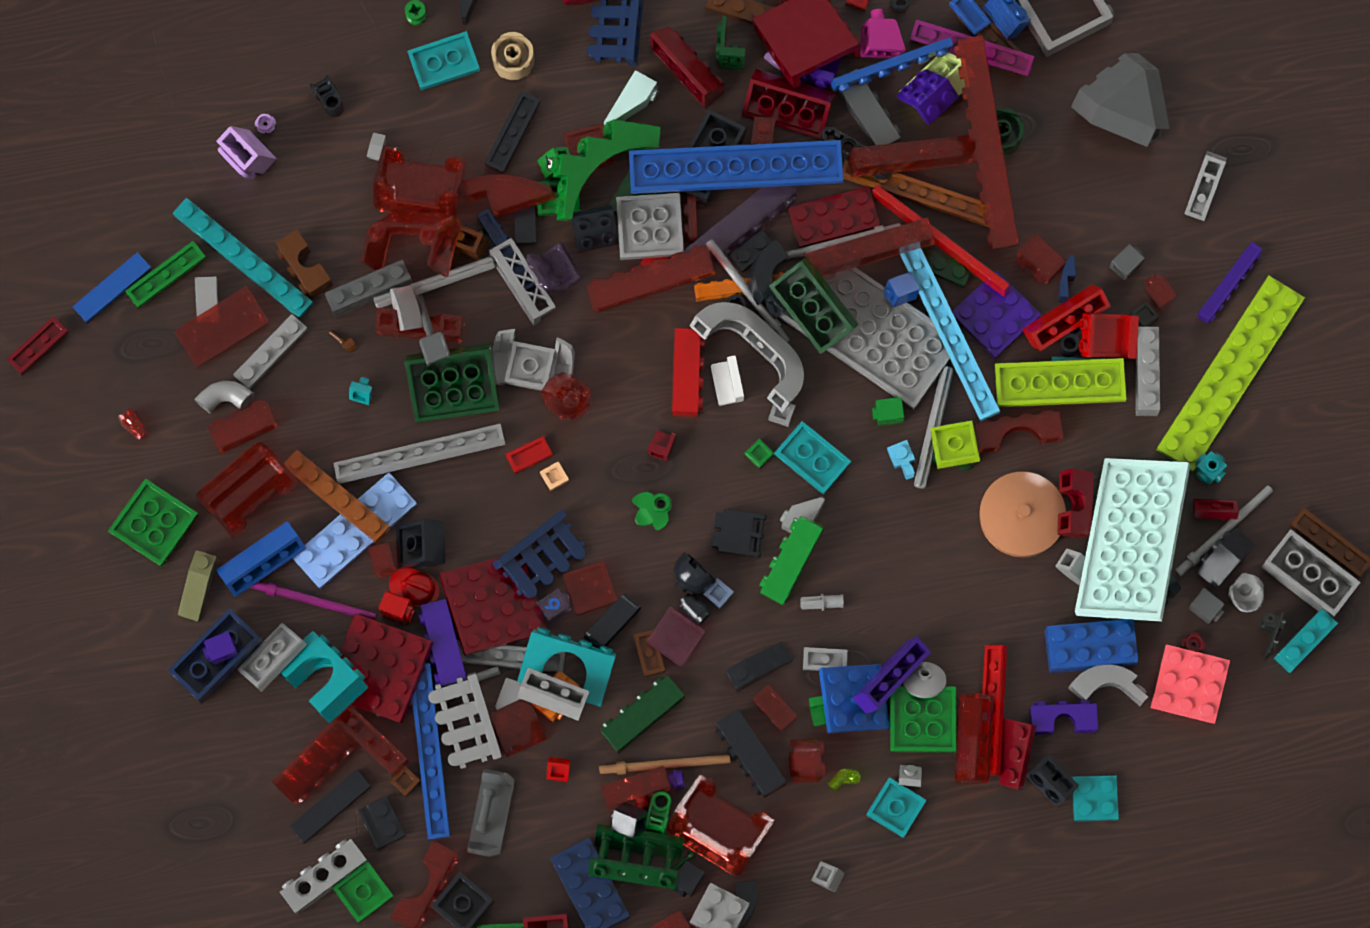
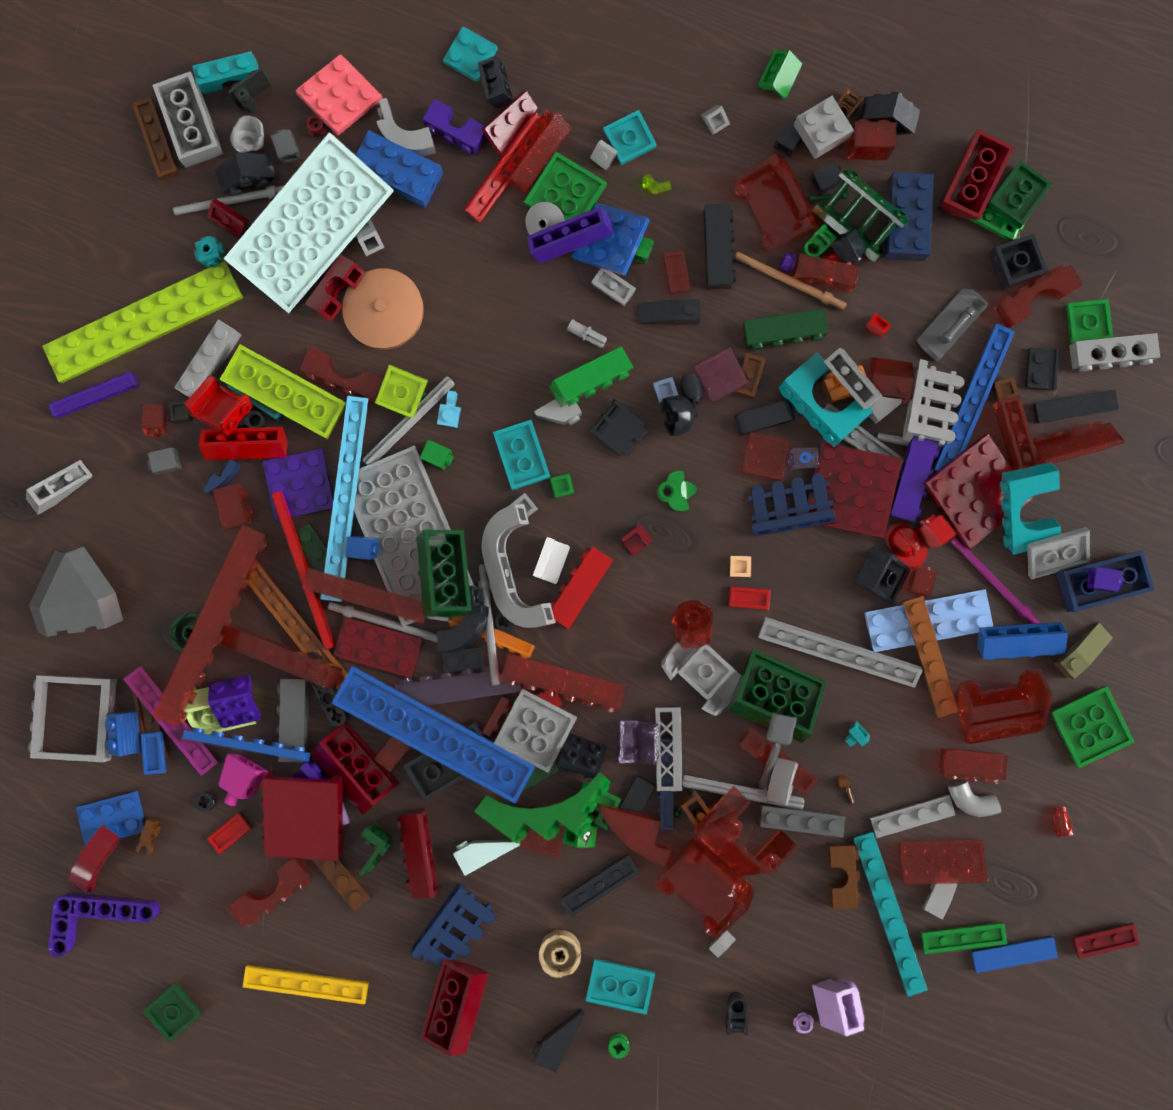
camera: 145 degrees left, 10 degrees up
(806, 760) = (679, 211): clear red brick -> none

